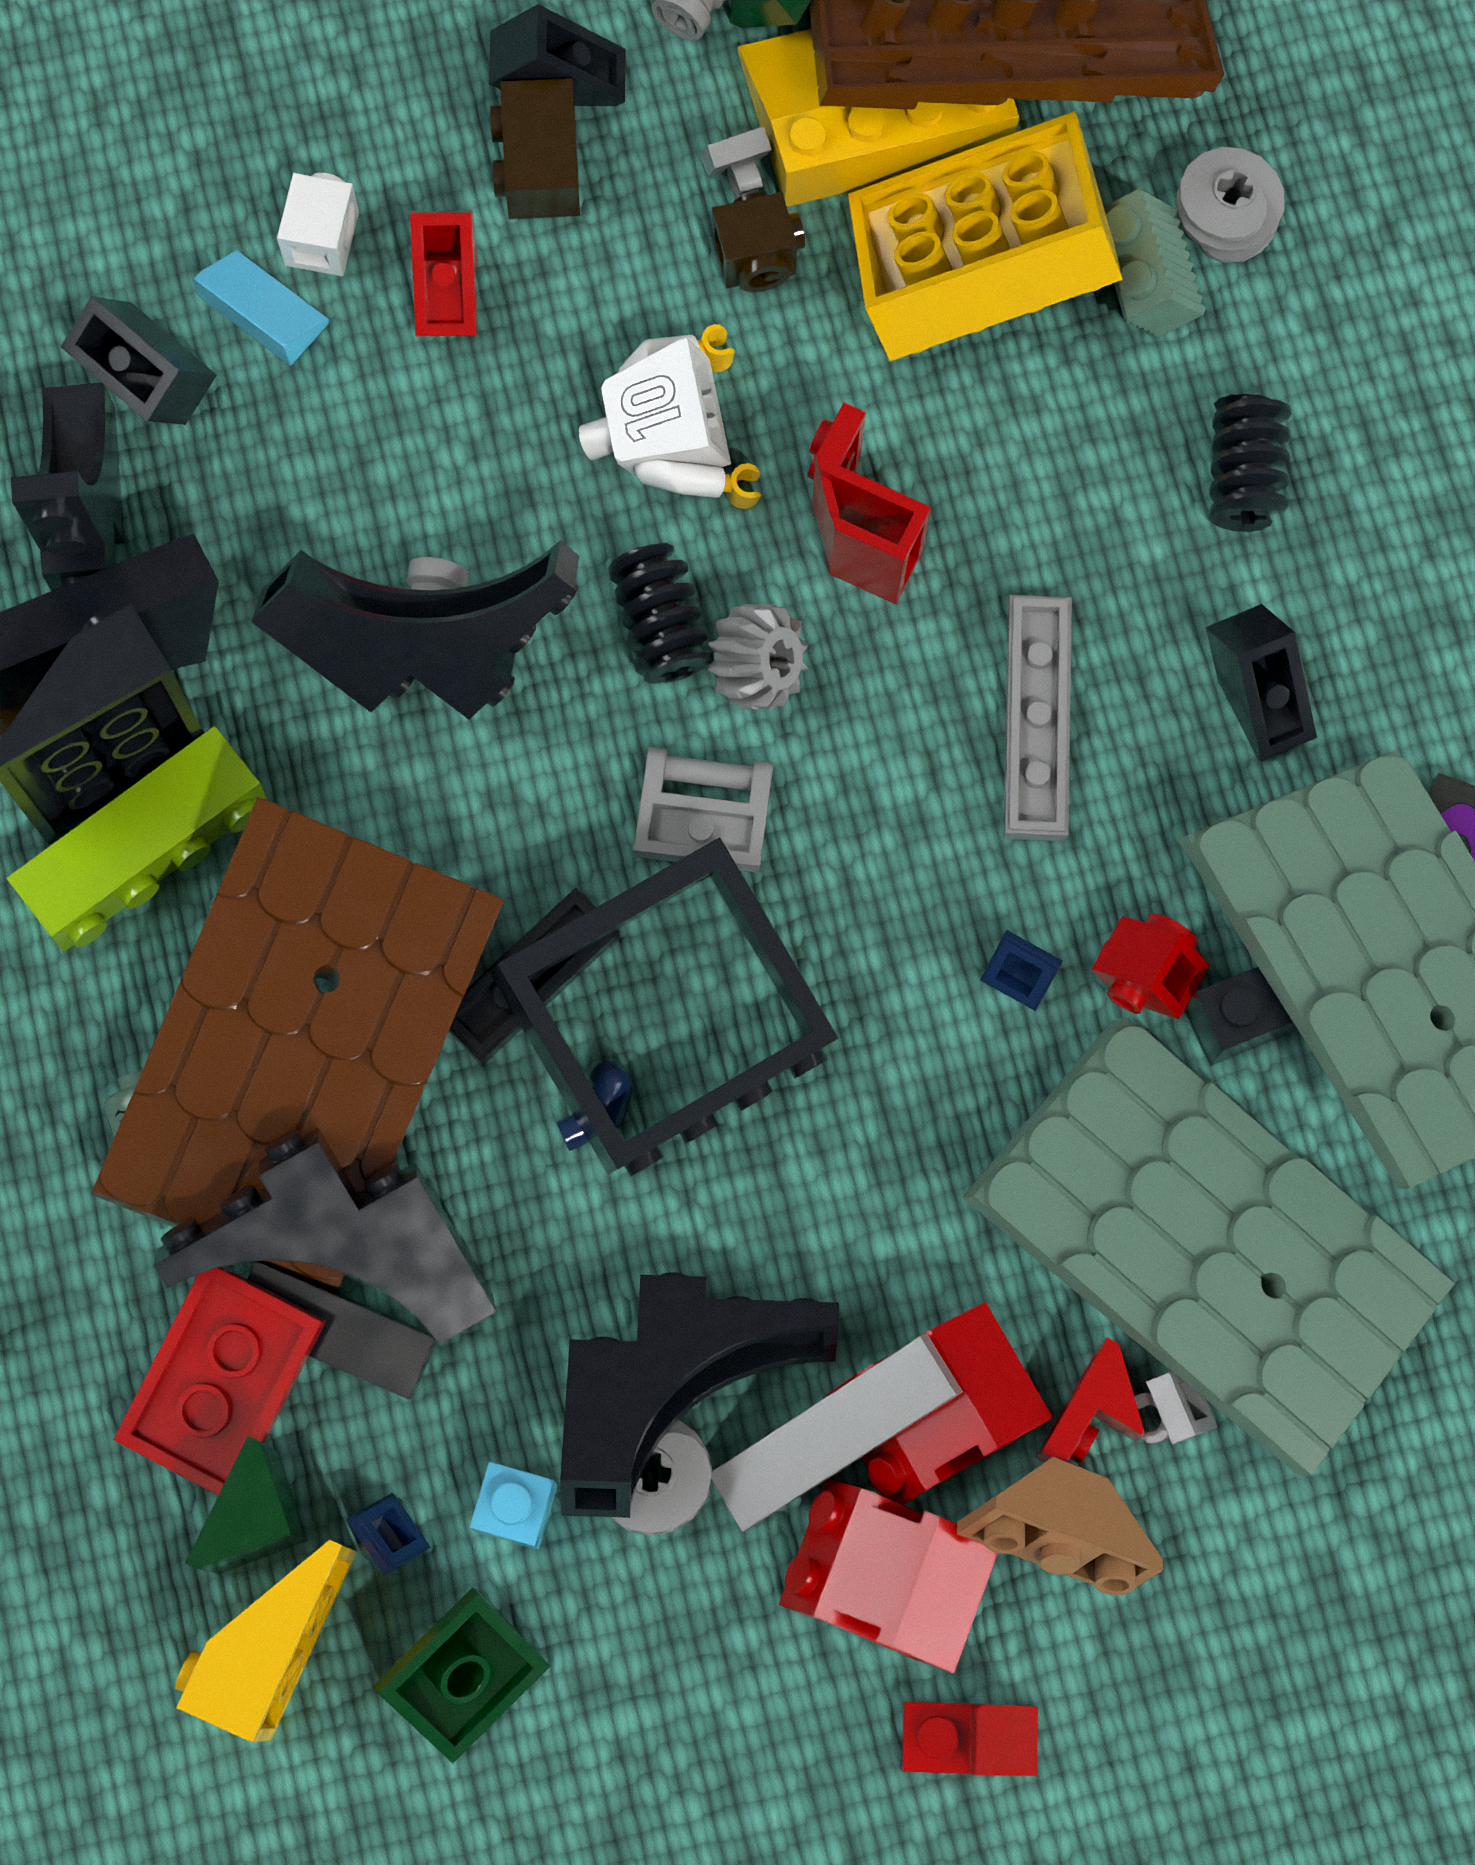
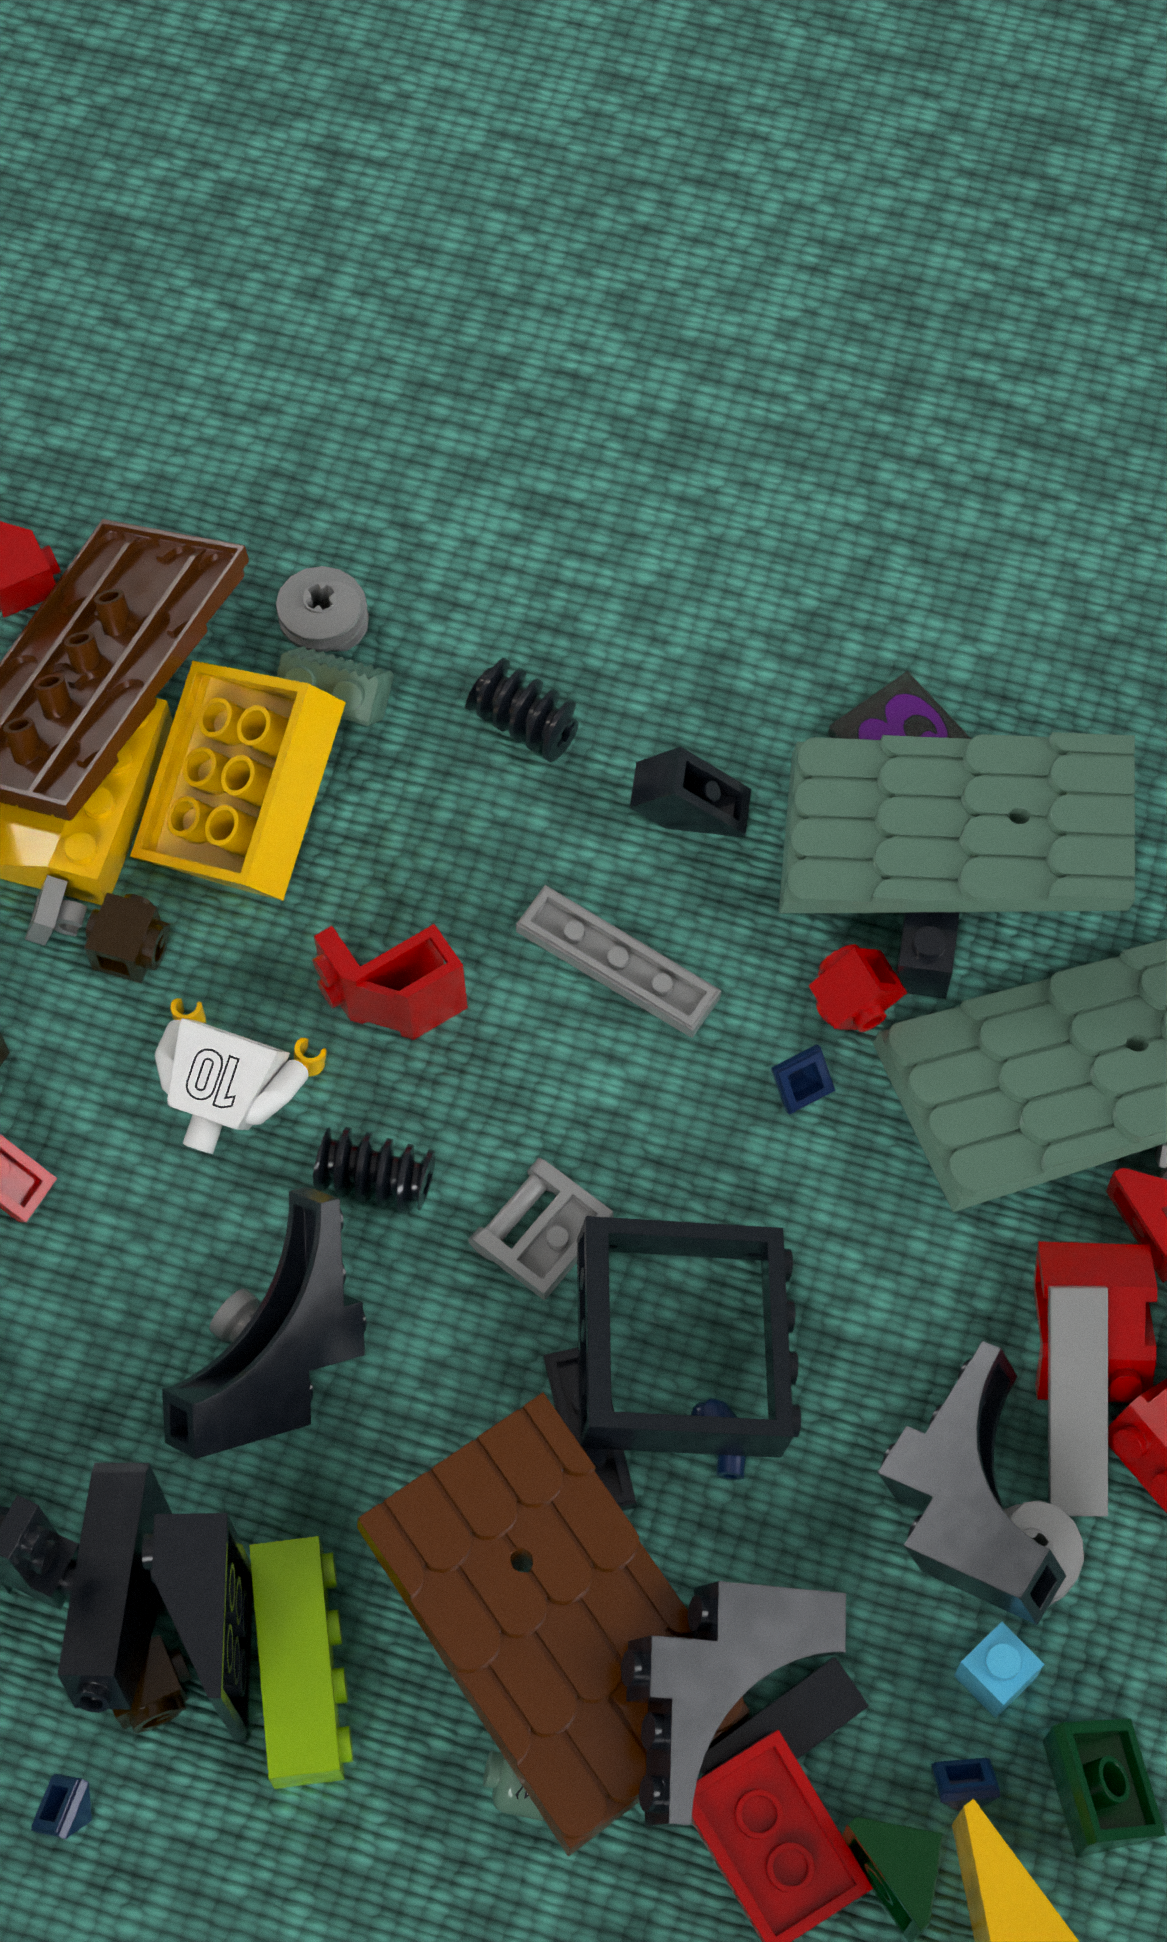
camera: 55 degrees left, 10 degrees down
(758, 656) = (454, 1117): light grey gear -> none

